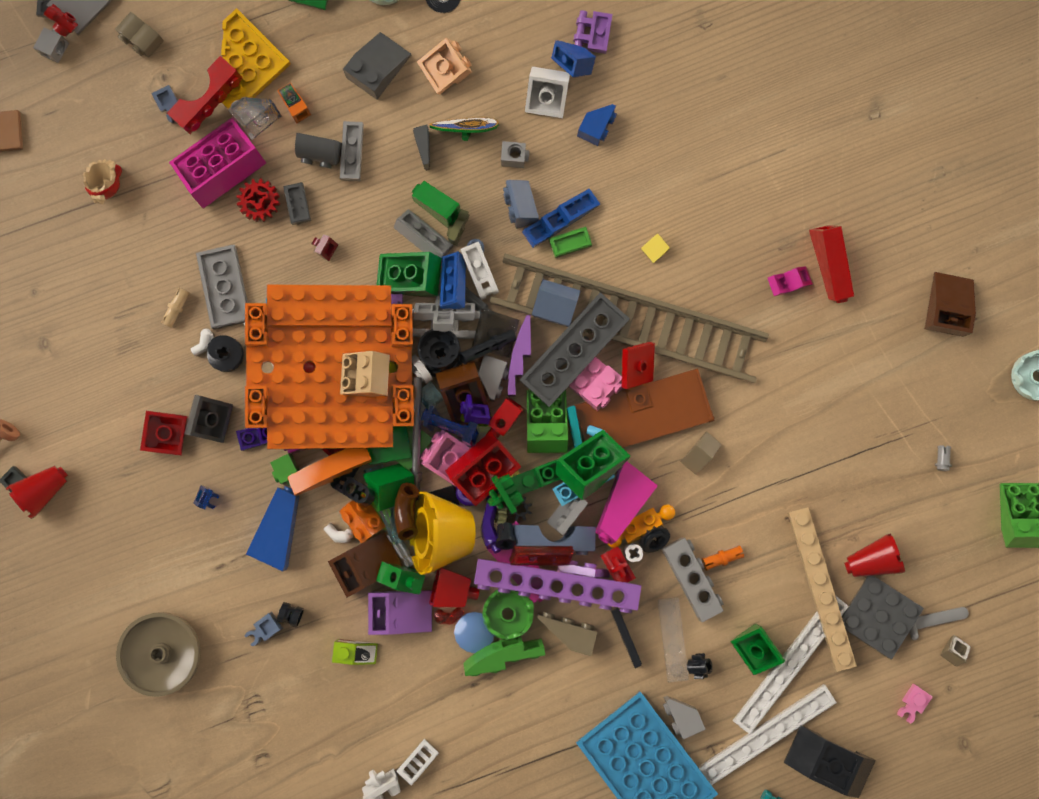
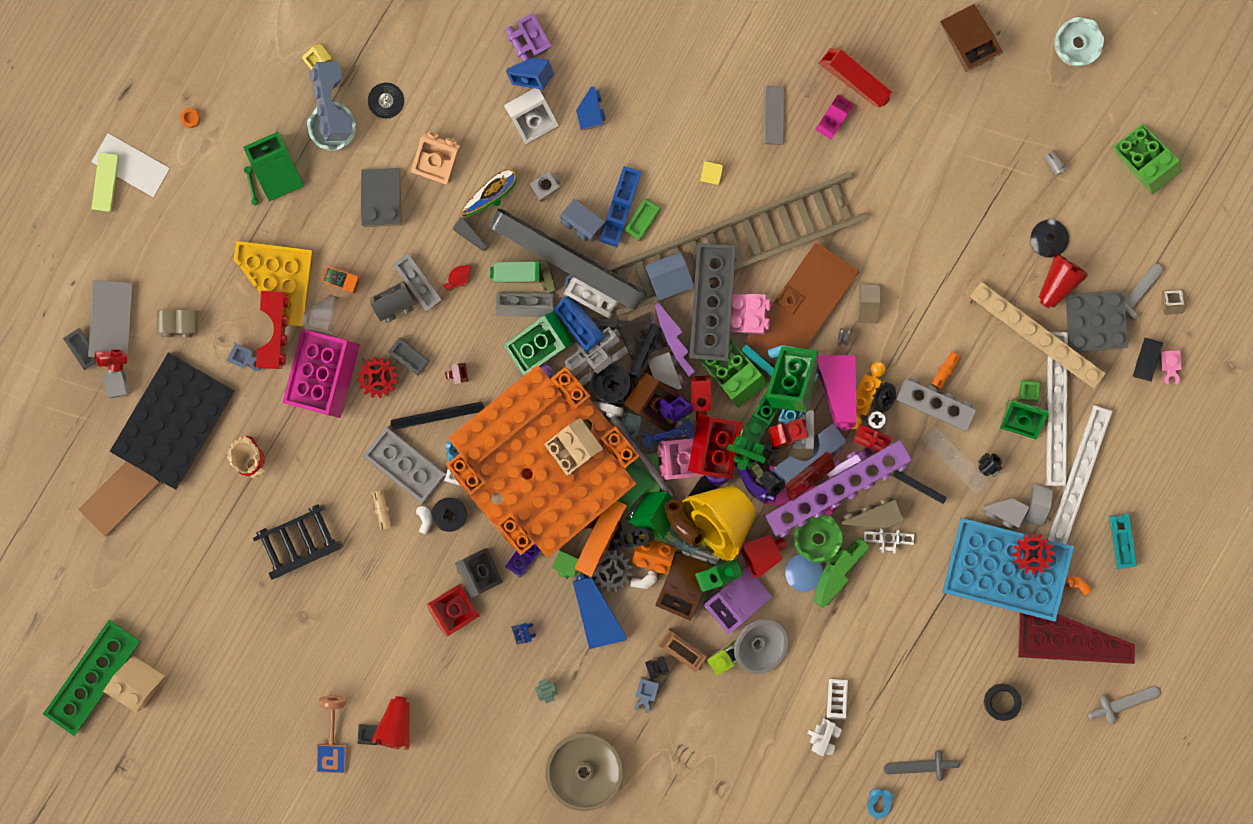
camera: 35 degrees left, 5 degrees up
(70, 108) = (172, 421): none -> black plate
(92, 298) = (313, 552): none -> black fence
(184, 560) = (546, 690): none -> sand green gear
(276, 265) = (436, 415): none -> black axle
(323, 597) = (665, 642): none -> medium nougat window
(324, 511) = (620, 572): none -> dark grey gear
(387, 172) = (458, 277): none -> red piece
(388, 674) = (766, 652): none -> light grey dish
(448, 618) = (776, 577): clear red arm -> none
(485, 225) = (567, 259): none -> dark grey beam
(550, 505) = (788, 433): none -> red brick
(563, 653) = (882, 539): none -> white piece
(638, 365) = (769, 276): red plate -> none
(659, 463) = (844, 336): none -> dark grey bush
(680, 782) = (1026, 547): none -> red gear
(716, 733) = (1039, 505): none -> light grey slope
(741, 242) = (773, 115): none -> light grey slope
(779, 629) = (1029, 390): none -> bright green tile
(829, 763) = (1140, 459): black slope -> none
(882, 514) = (1040, 242): none -> black dish
(899, 683) = (1148, 359): none -> black slope

